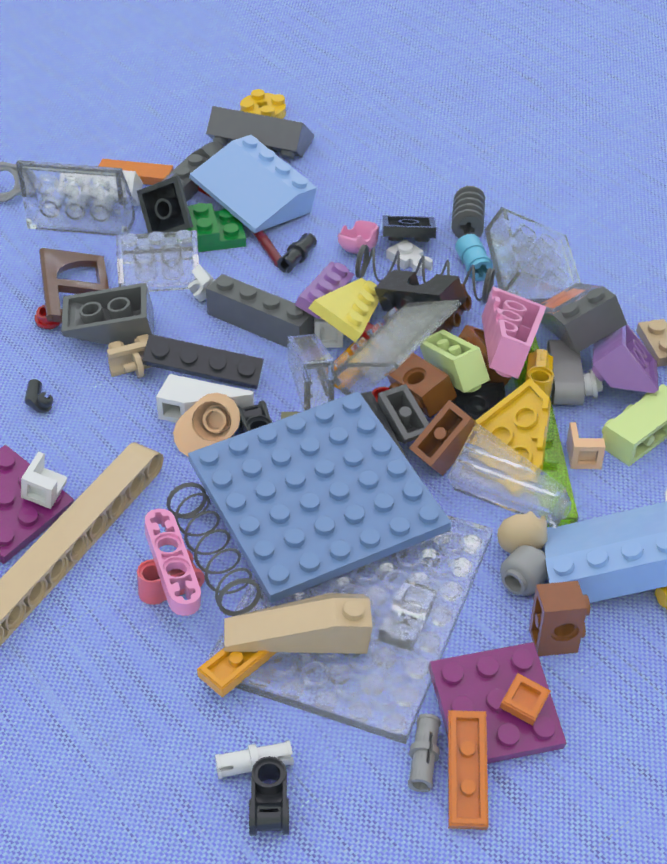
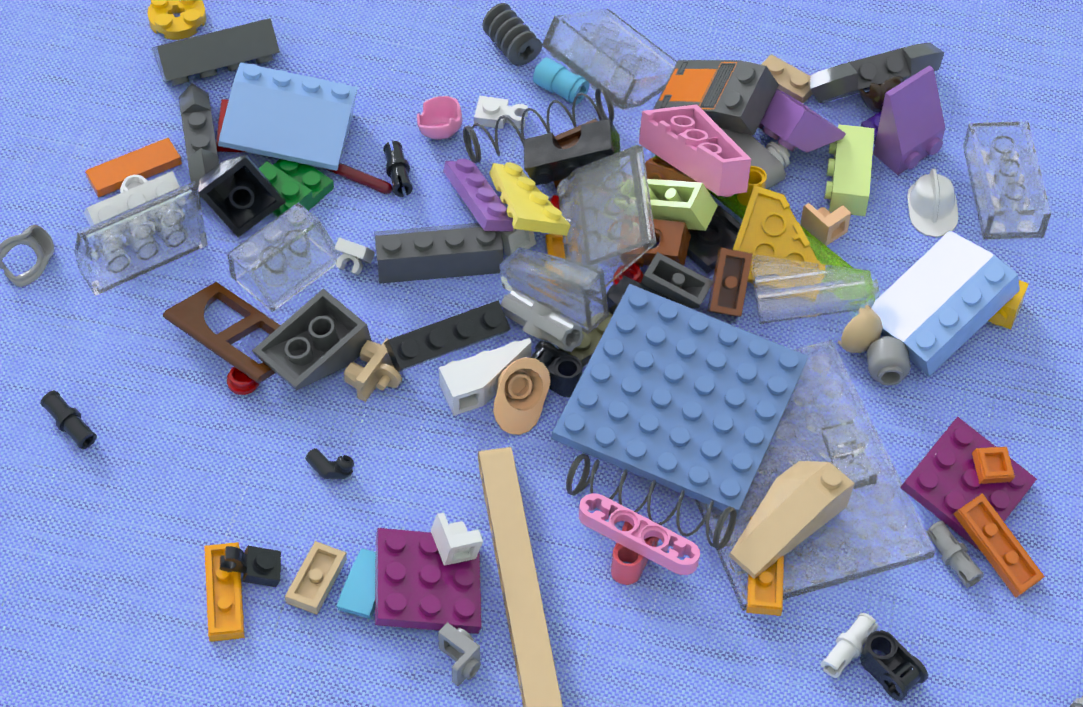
camera: 40 degrees left, 10 degrees up
(277, 387) = (542, 320): none -> light grey piece
(408, 226) = (475, 81): black plate -> none
(558, 618) = (954, 385): brick -> none

